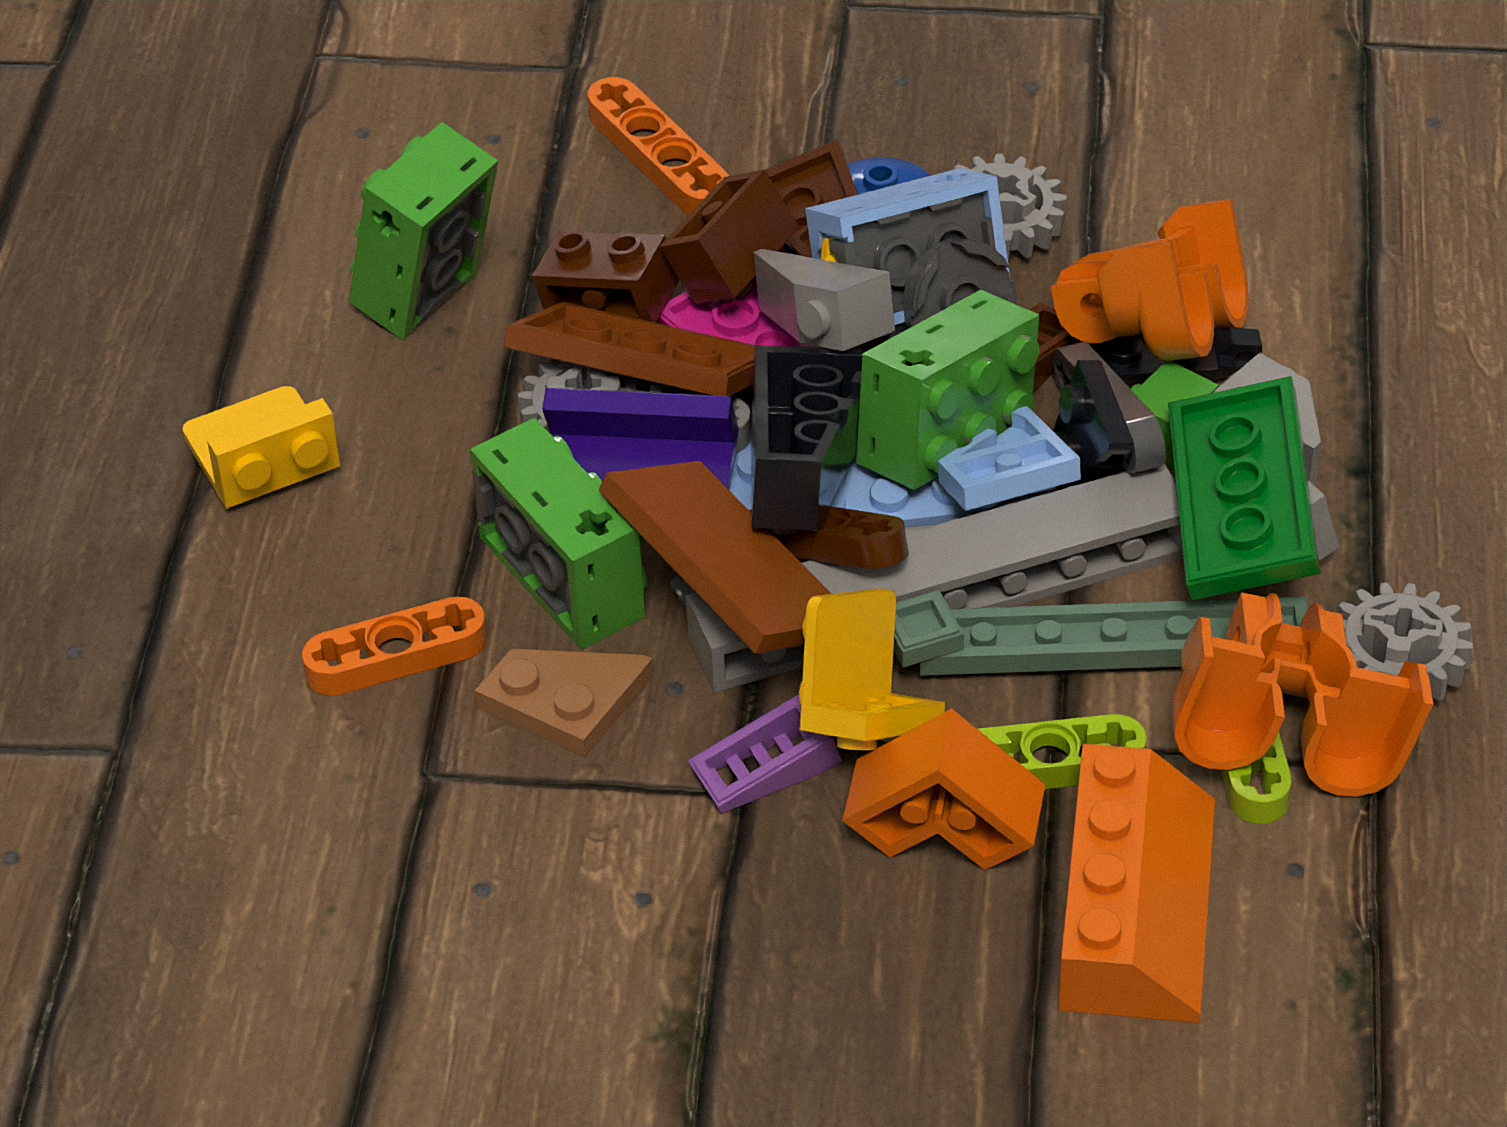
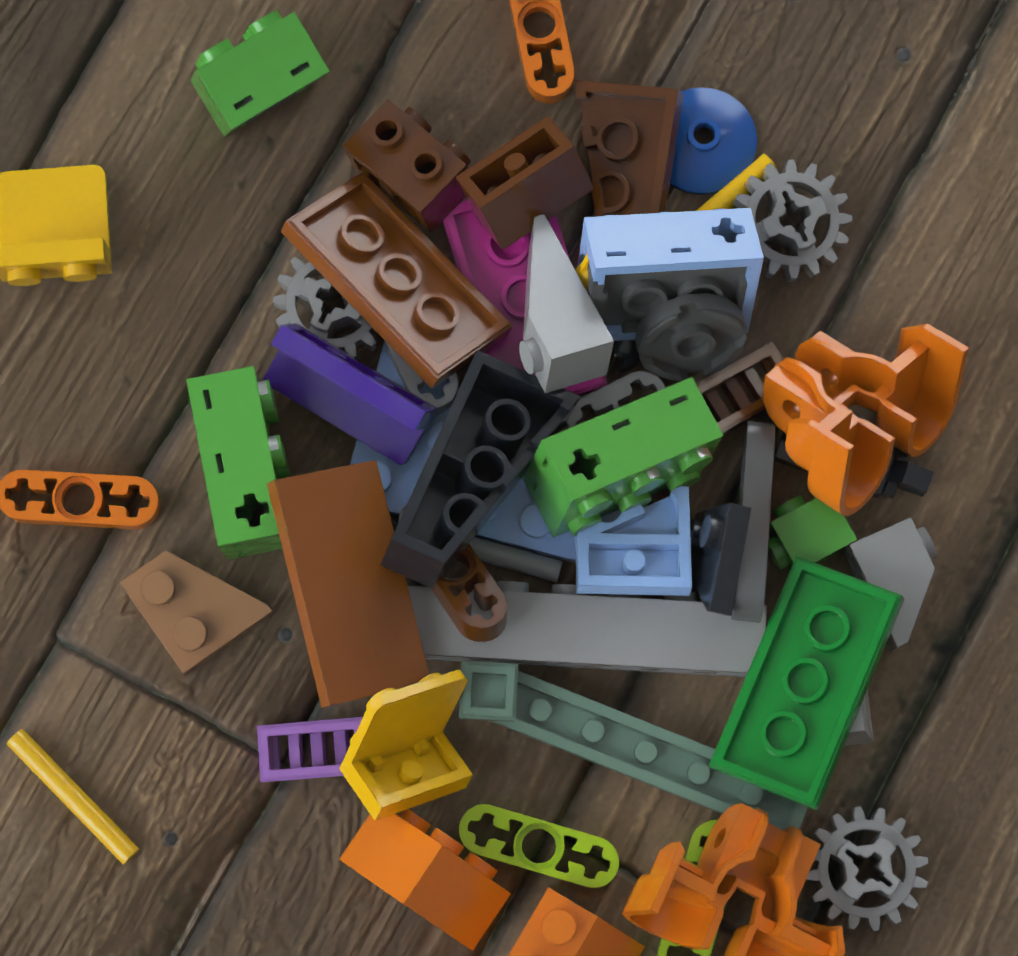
camera: 20 degrees right, 35 degrees up
(515, 892) = (73, 796): none -> yellow bar

